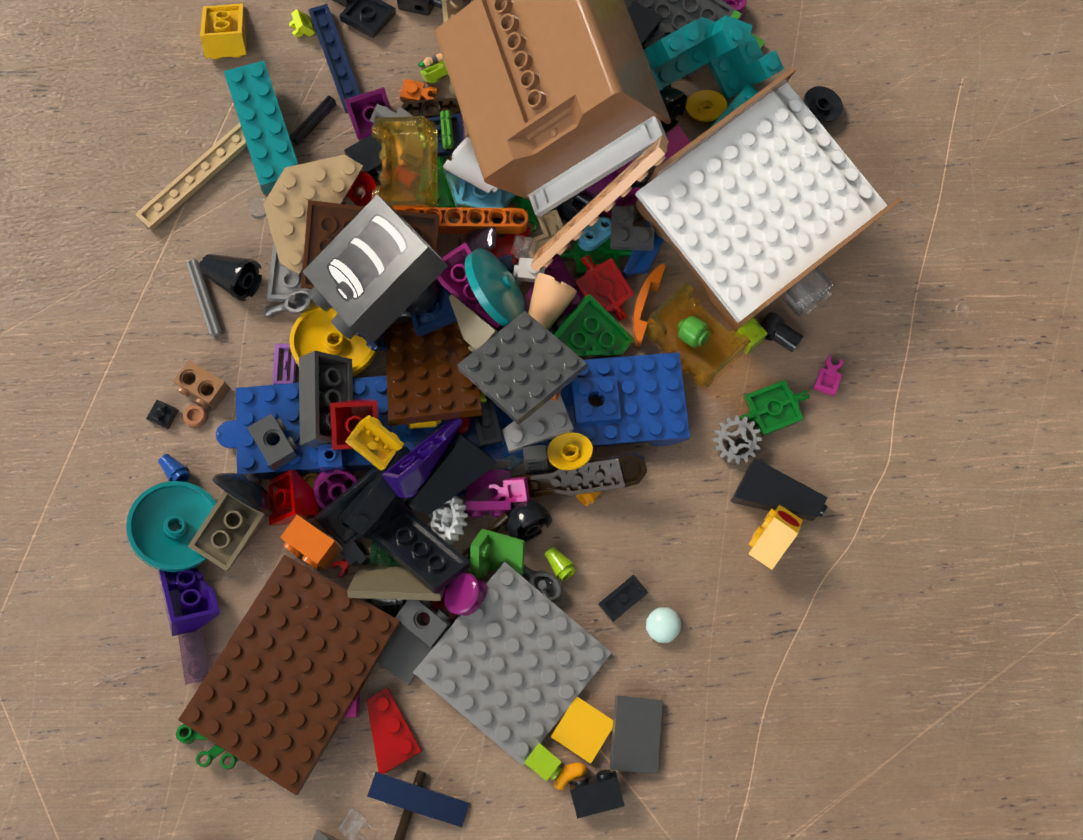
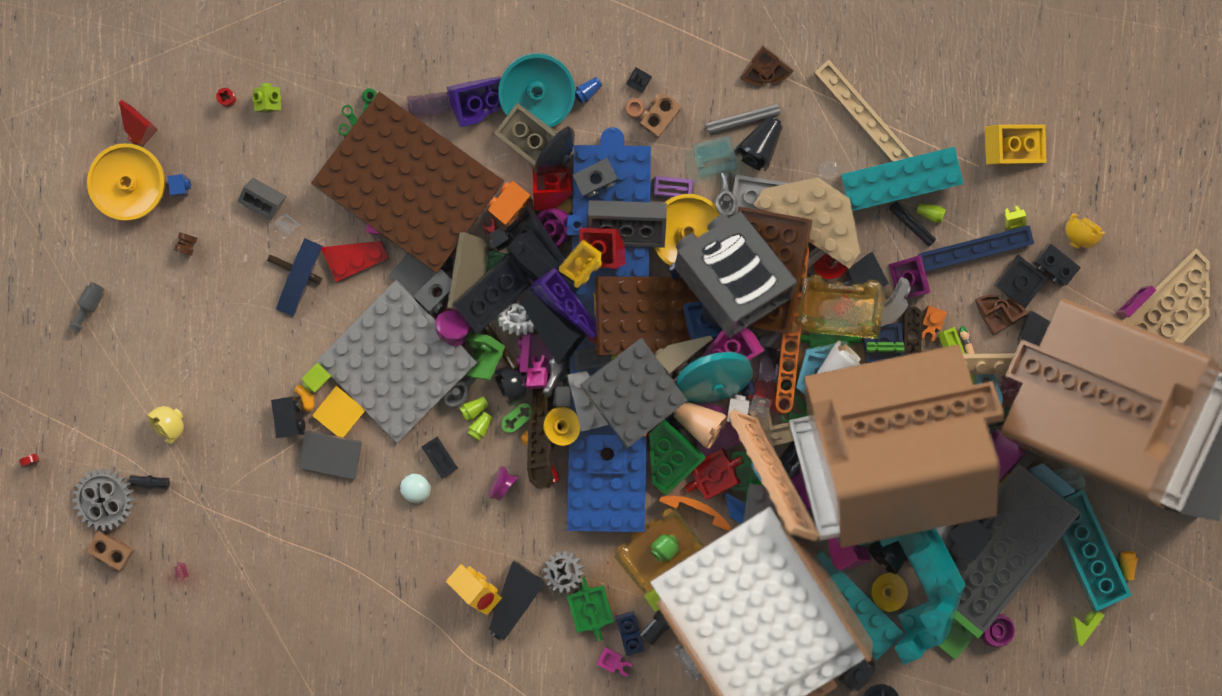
camera: 95 degrees right, 15 degrees up
(146, 279) = (766, 68): none -> reddish brown brick
(240, 324) = (711, 151): none -> clear light blue plate
(299, 101) = (932, 212): none -> lime cone
(402, 31) = (999, 313): none -> reddish brown brick
(446, 244) = (769, 341): none -> light grey arm
(505, 468) = (556, 371): none -> flat silver piece
(561, 516) = (515, 413): none -> bright green beam
(581, 554) = (479, 427): none -> lime cone
(645, 520) = (501, 483): none -> magenta piece
(793, 363) = (630, 633): none -> dark blue slope

